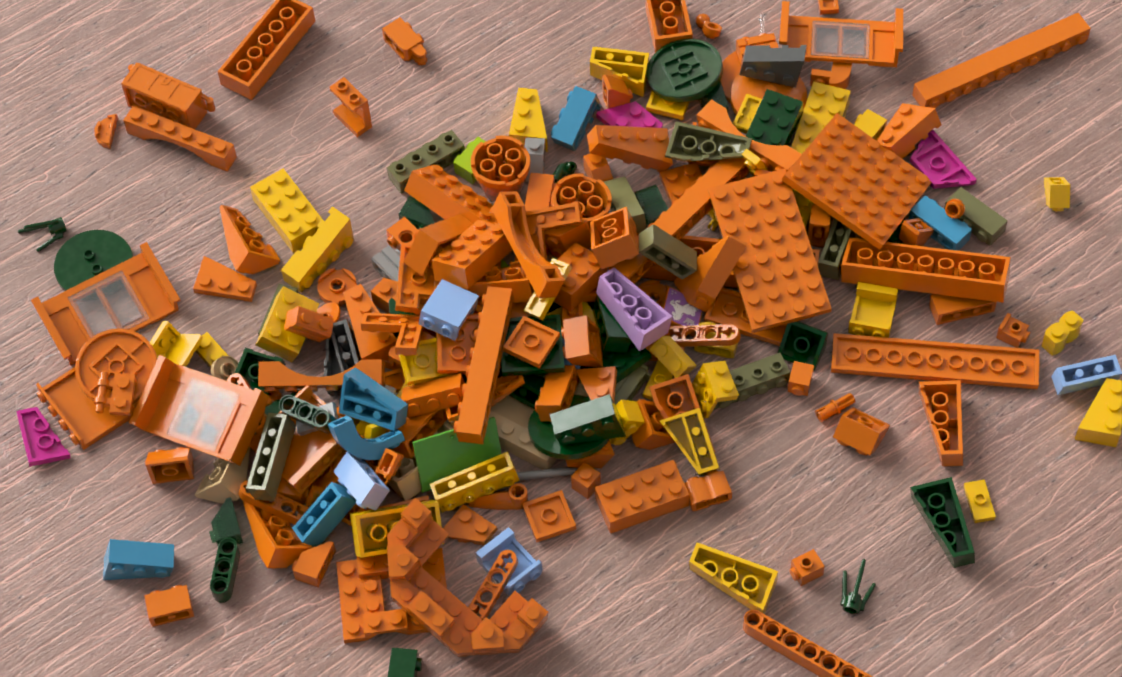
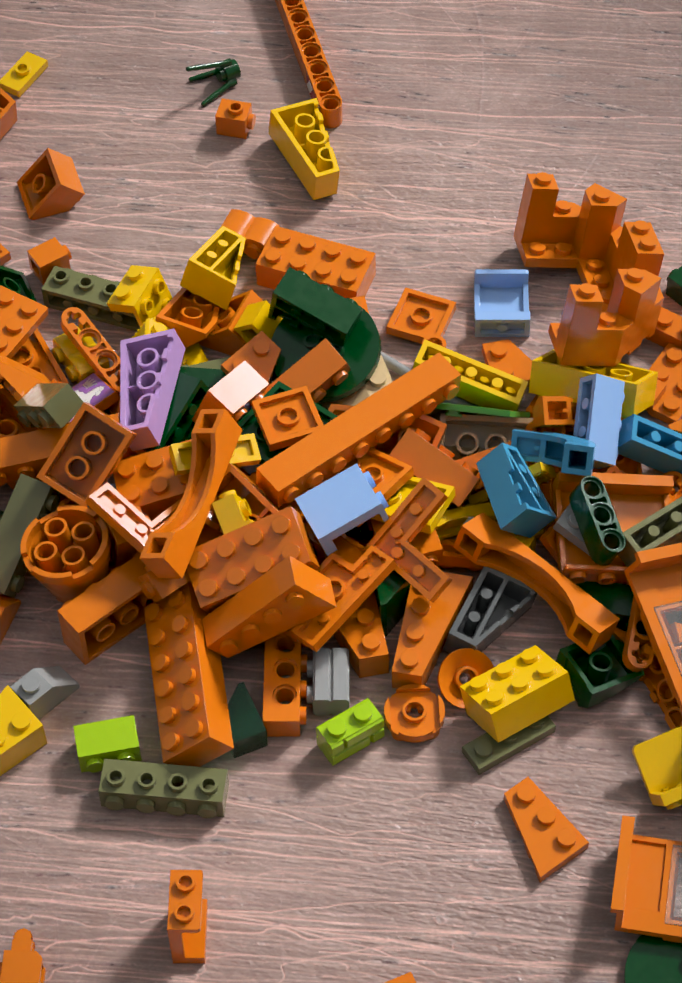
camera: 140 degrees left, 5 degrees down
(209, 349) = (626, 735): yellow plate -> none
(224, 367) = (633, 701): tan plate -> none
(244, 244) = (478, 840): orange wedge -> none
(286, 208) = (387, 851): yellow brick -> none
(308, 324) = (500, 645): orange brick -> none
(319, 251) = (399, 763): yellow wedge -> none
(359, 250) = (350, 731): none -> lime brick
(489, 586) = (519, 300): orange beam -> none
(500, 165) = (103, 667): orange cone -> none
(500, 261) = (232, 511): none -> yellow brick
(564, 169) = (22, 660): dark green arm -> none
(834, 407) = (46, 224): orange axle -> none
(943, 514) = (72, 68): dark green wedge -> none

